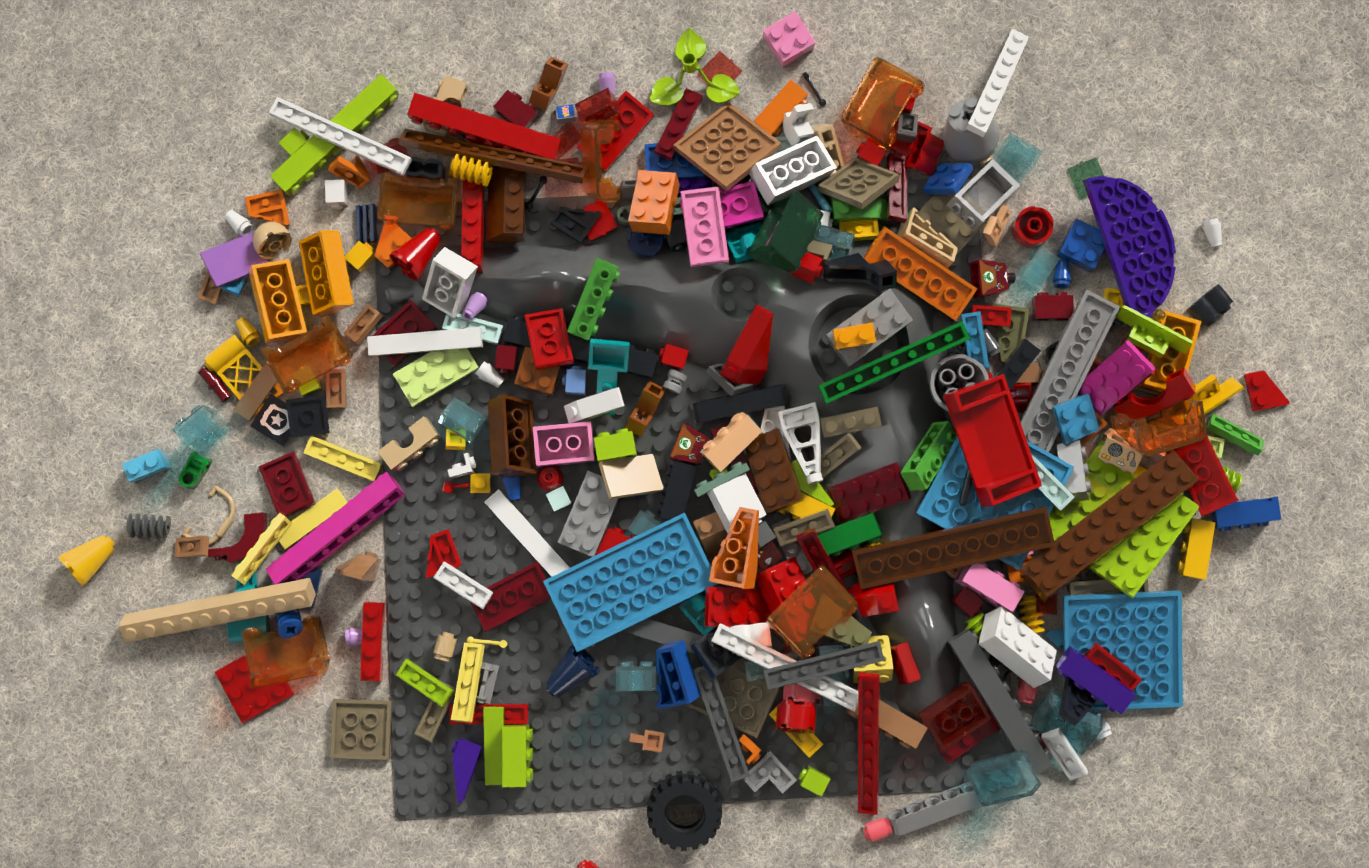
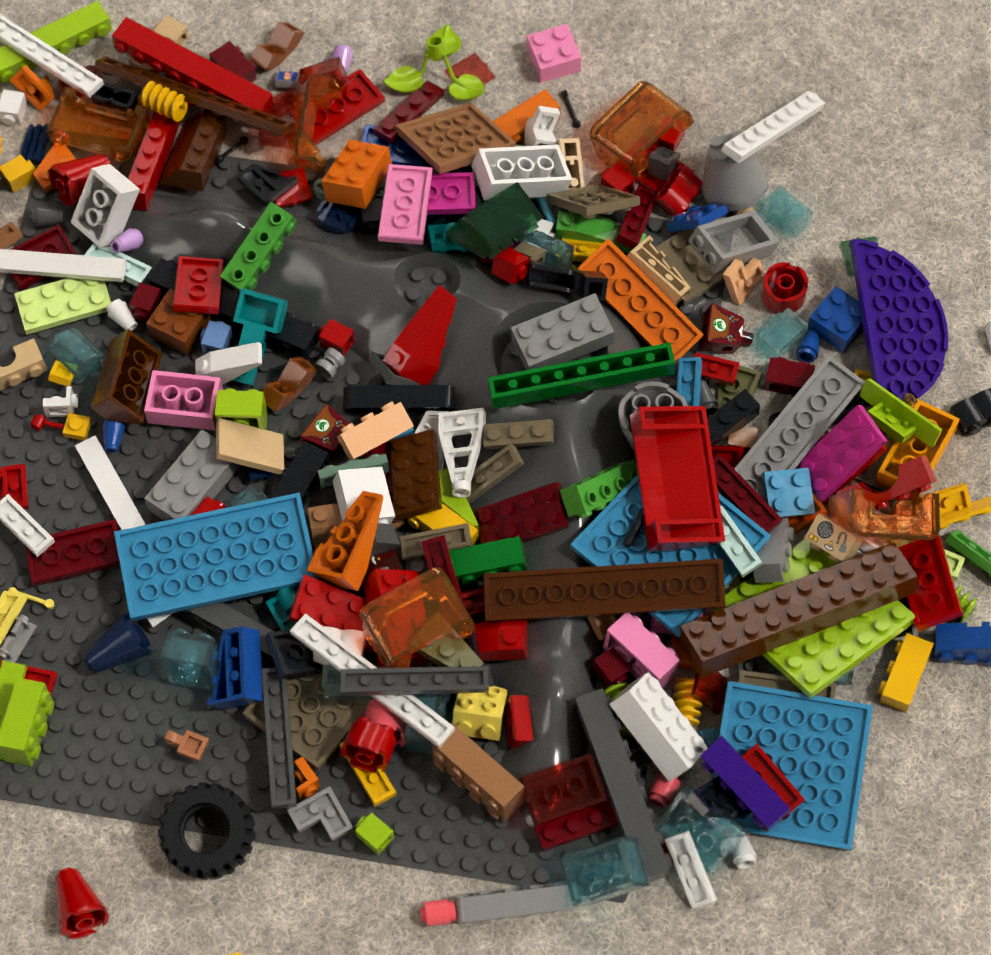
camera: 15 degrees right, 20 degrees down
(552, 482) = (157, 436): red cone -> none
(558, 498) = (160, 460): light aqua tile -> none
(853, 336) = (539, 328): light orange brick -> none
(868, 742) = (448, 794): red tile -> none
(1045, 434) = (744, 496): none -> dark red plate

